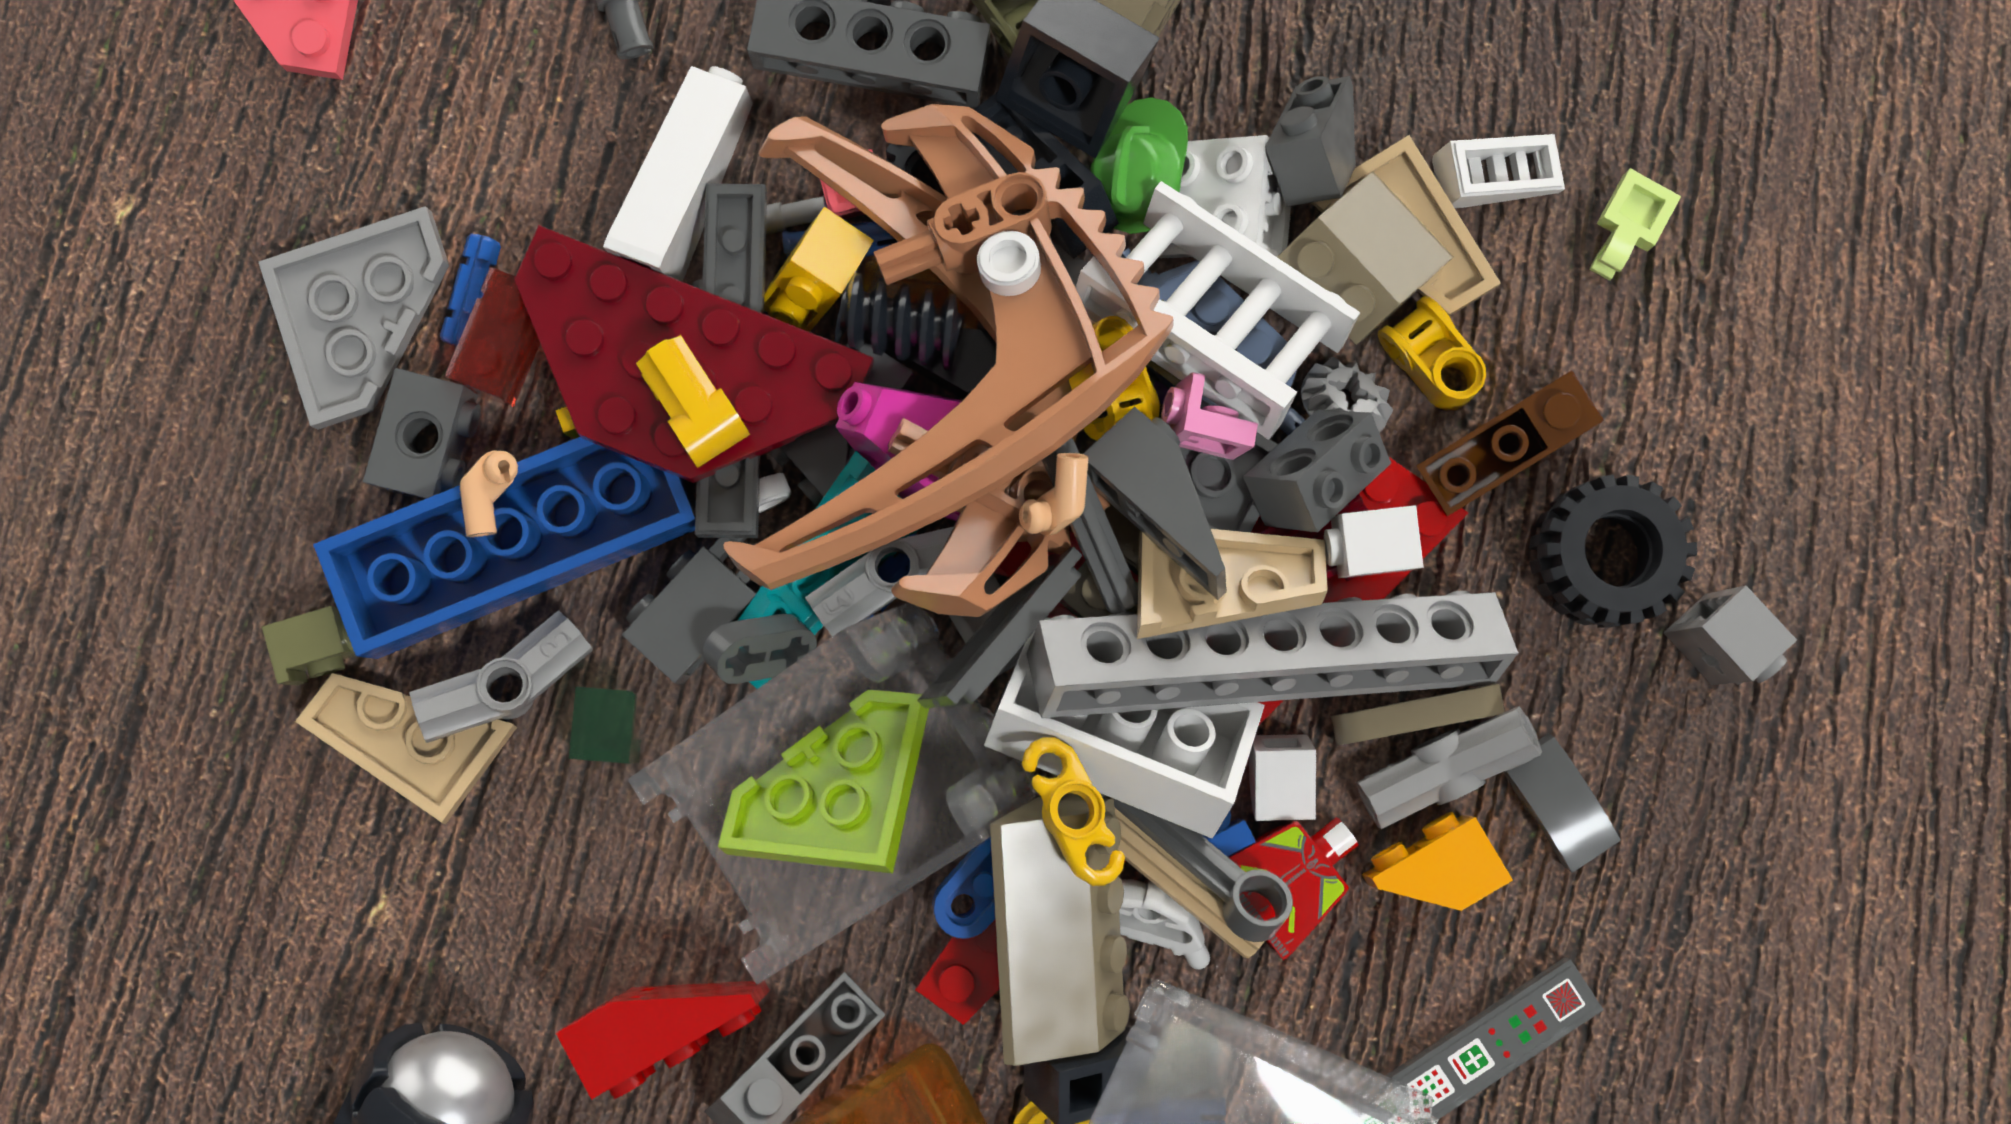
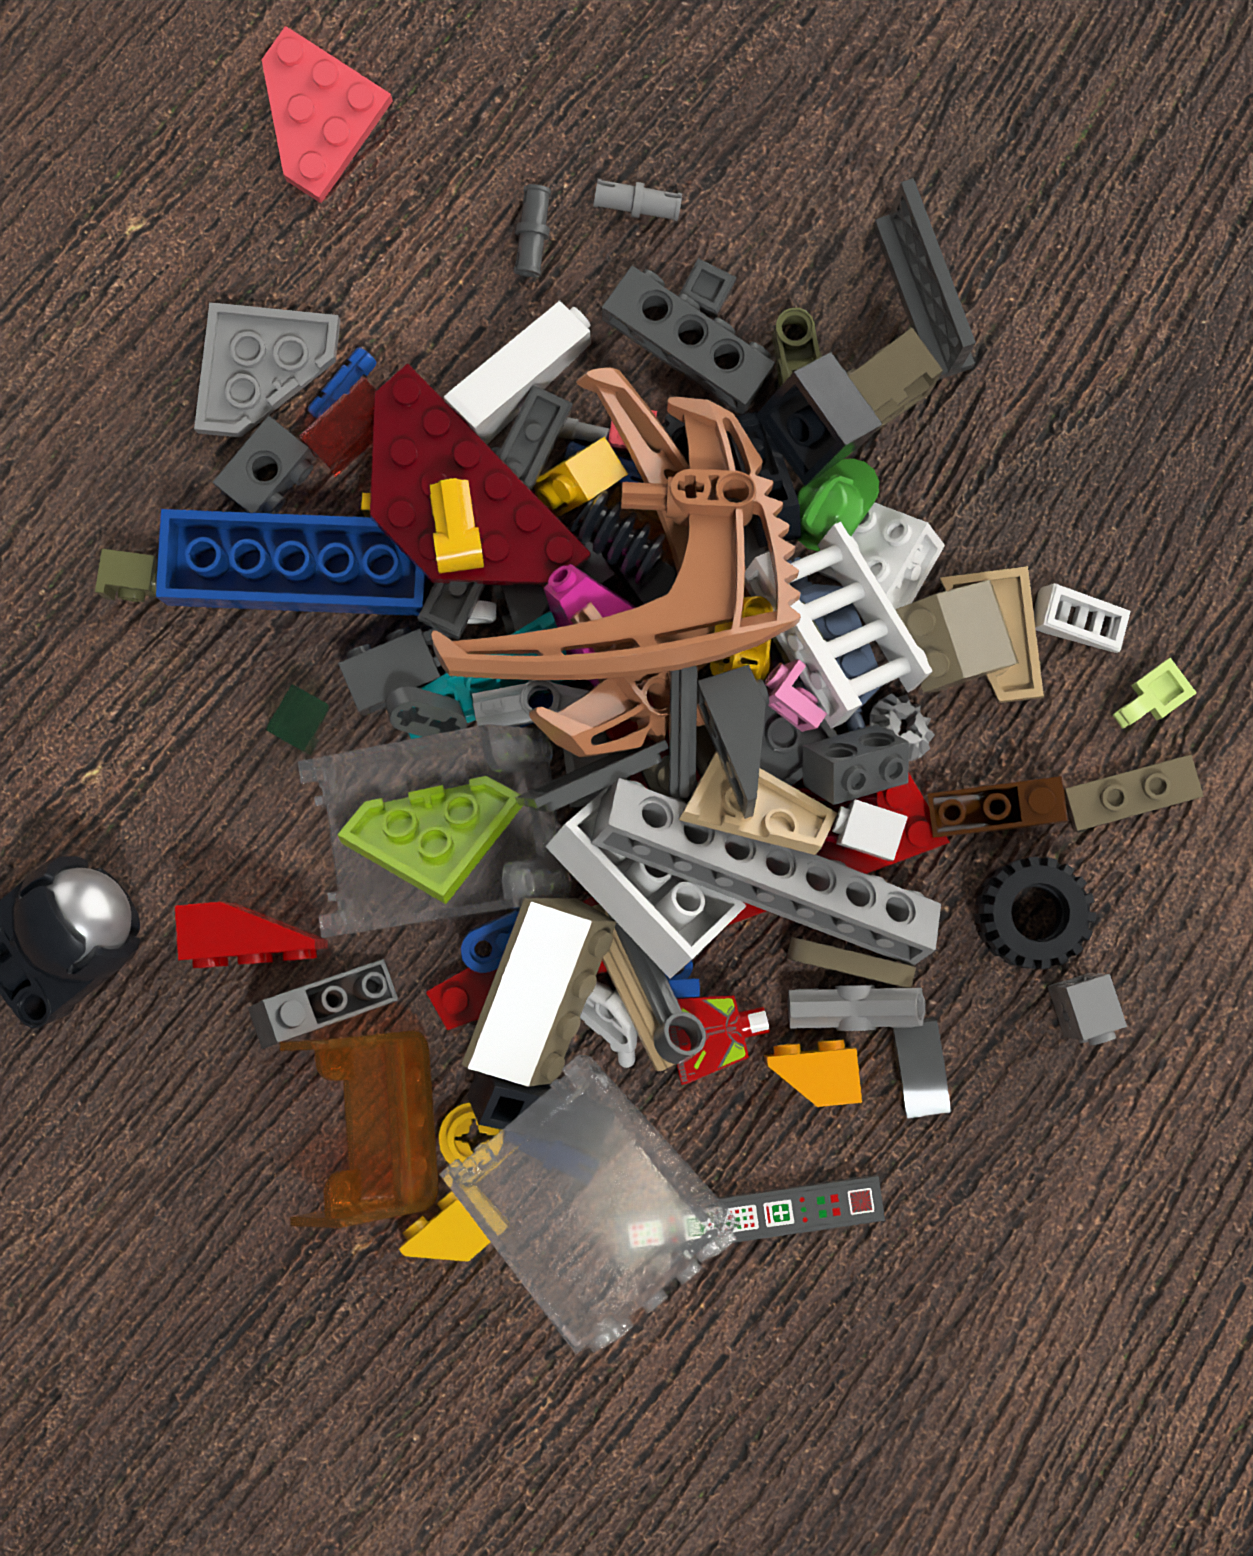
camera: 25 degrees right, 0 degrees up
(383, 737) = (162, 671): tan wing -> none
(466, 699) = (272, 654): light grey piece -> none
(482, 487) = (289, 522): light nougat arm -> none
(1009, 263) = (708, 530): white tile -> none
(1063, 502) = (669, 706): light nougat arm -> none
(1071, 841) = (573, 934): yellow piece -> none
(1283, 777) = (739, 963): white brick -> none
(1315, 141) = (960, 541): dark grey slope -> none
(1431, 351) = (975, 721): yellow piece -> none
(1661, 351) = (1133, 793): none -> dark tan plate

